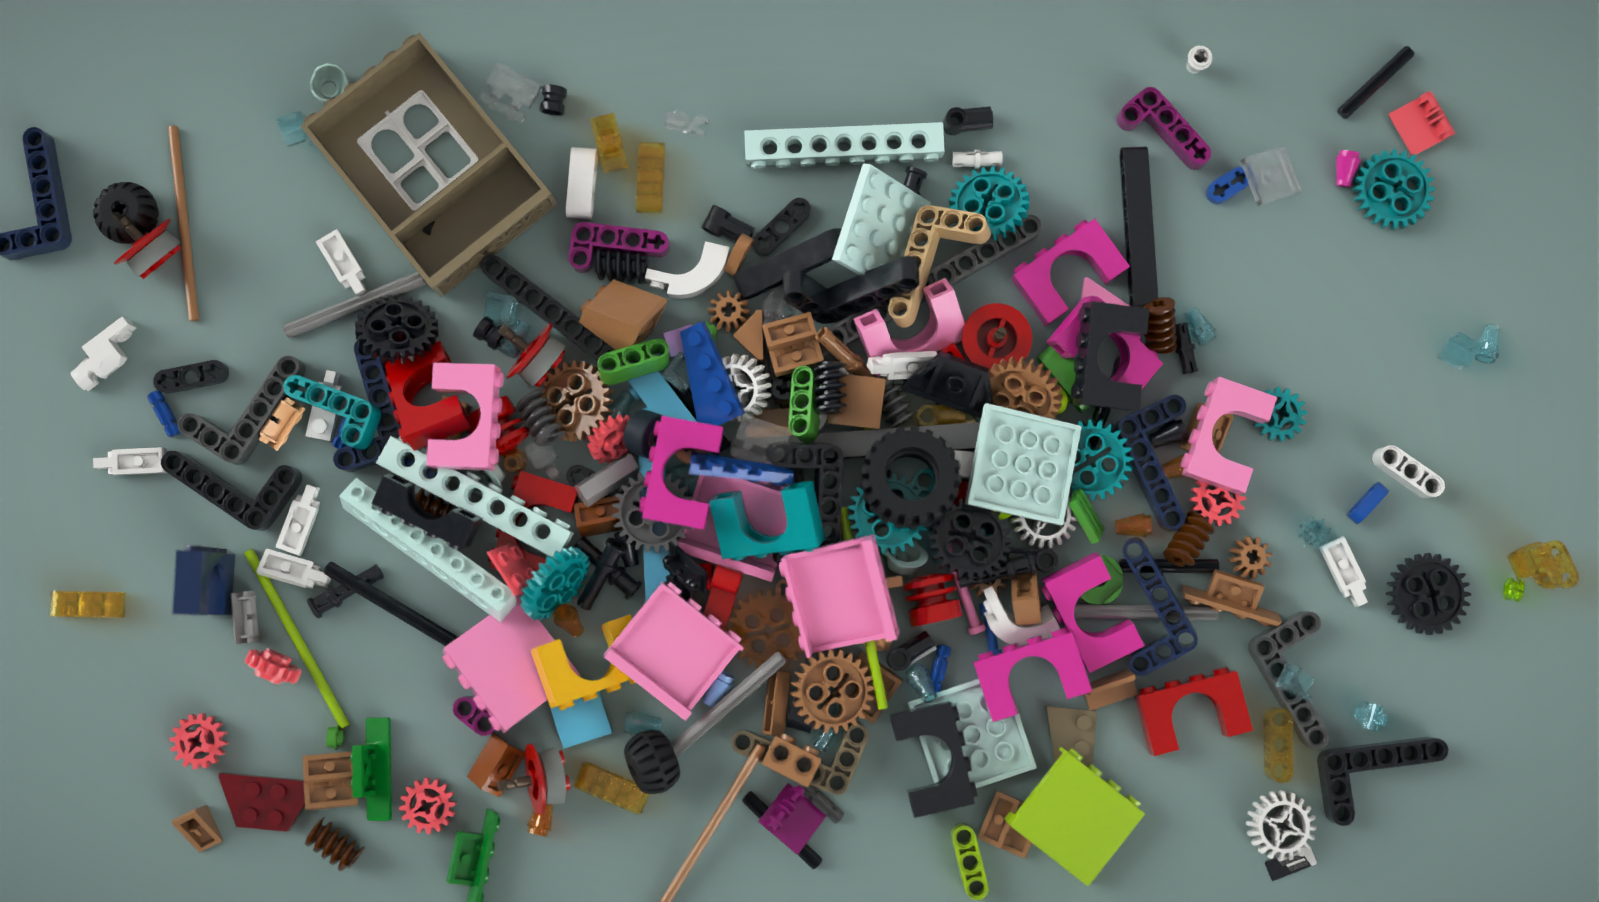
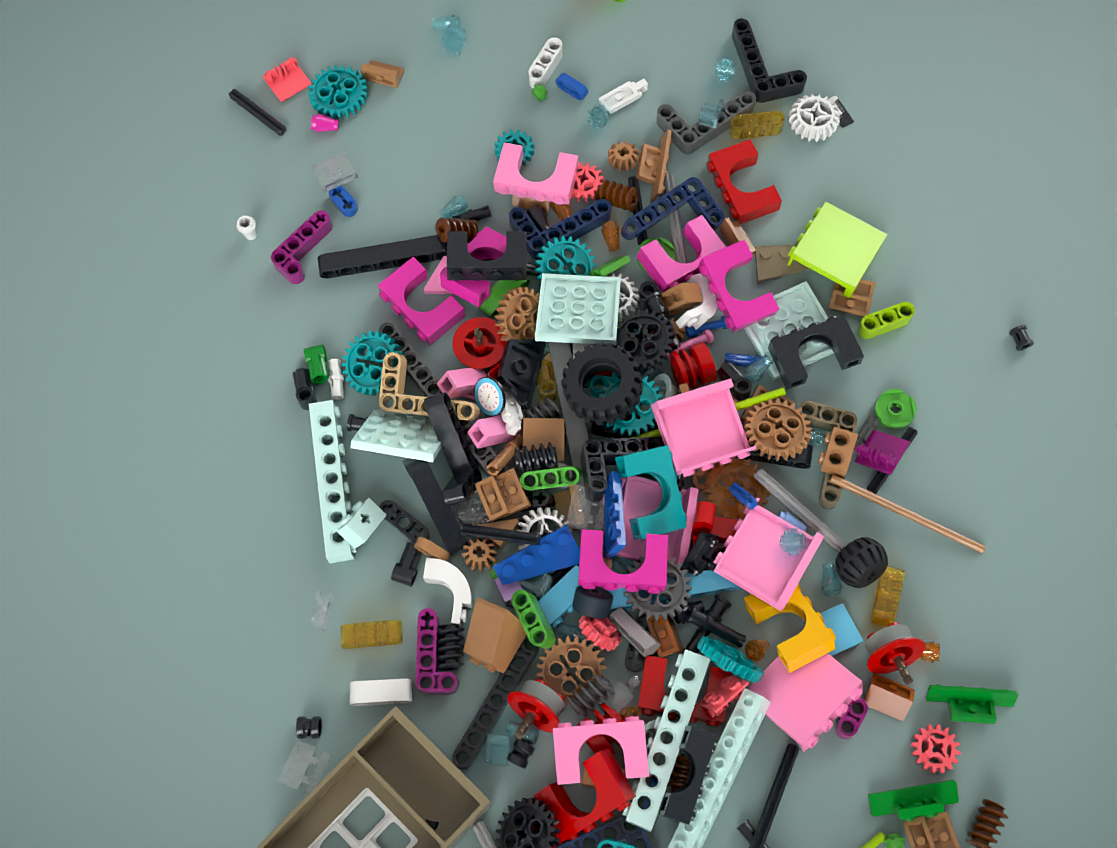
camera: 90 degrees left, 15 degrees down
(609, 143) = (344, 670): clear yellow brick -> none
(683, 681) = (793, 541): none -> clear light blue gear
(741, 335) = (501, 534): none -> black axle
(748, 631) = (743, 496): none -> blue axle
(776, 703) = (793, 472): medium nougat piece -> none
(788, 185) = (361, 523): none -> light aqua brick
(858, 858) = (895, 420): none -> bright green plate
(918, 340) = (490, 396): none -> piece
(1005, 136) = (316, 360): none -> green piece
(1363, 458) = (539, 92): none -> bright green plate
(1419, 252) = (382, 73): none -> medium nougat panel
(1449, 587) = (622, 39): black gear -> none

